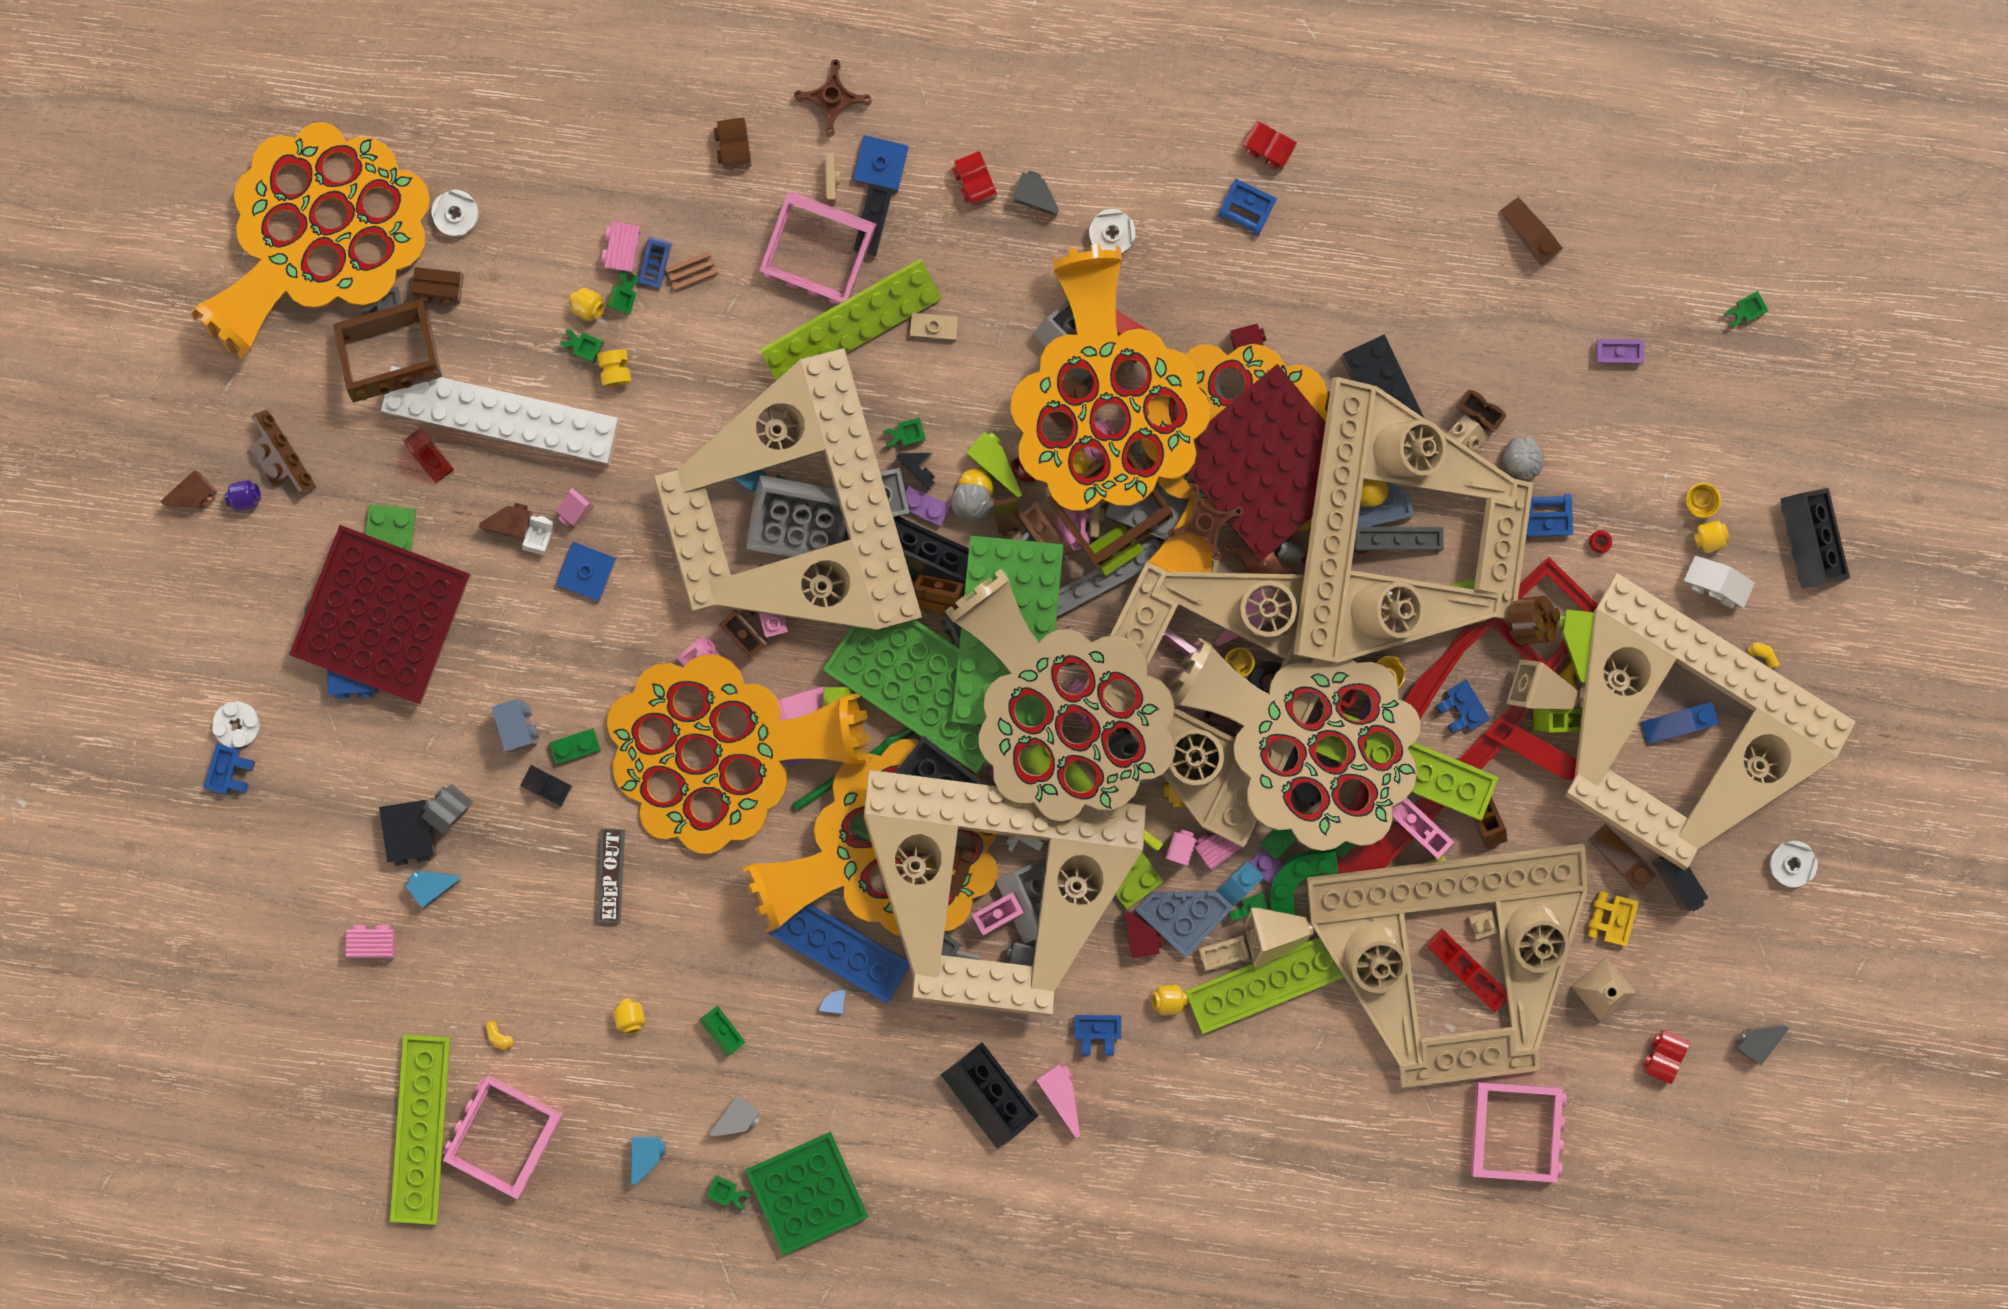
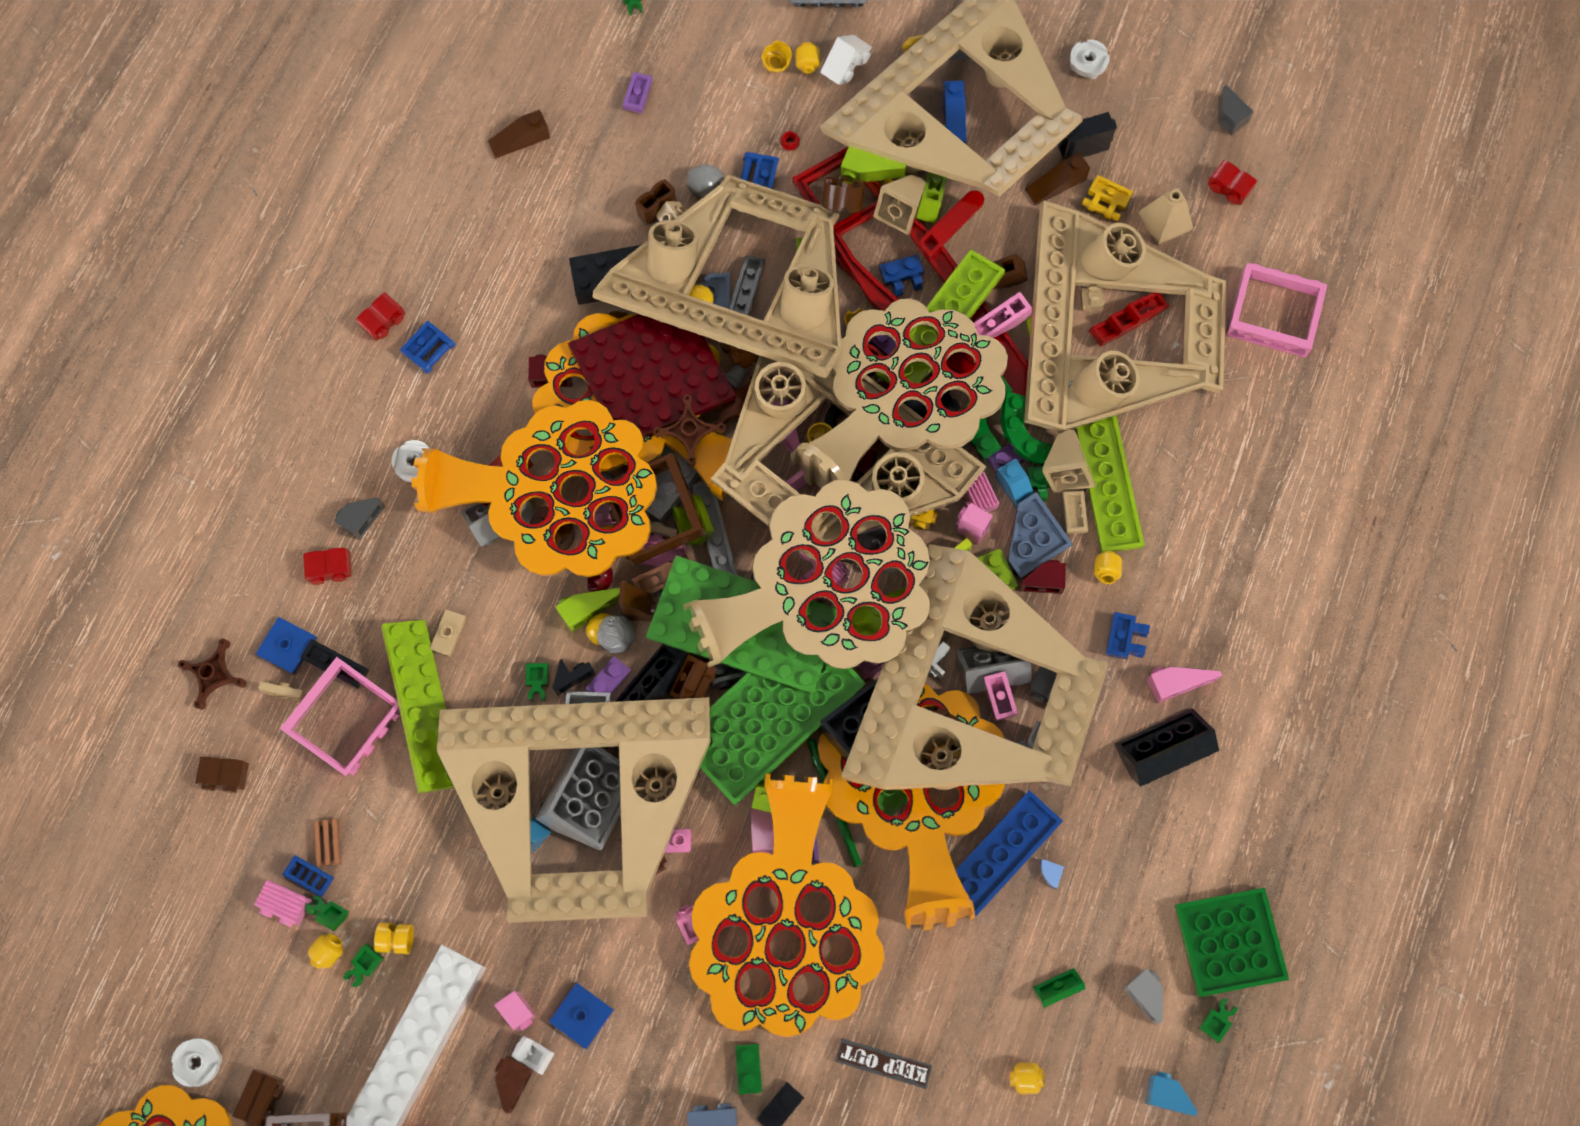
camera: 80 degrees left, 15 degrees down
(743, 634) = (682, 873): reddish brown brick -> none

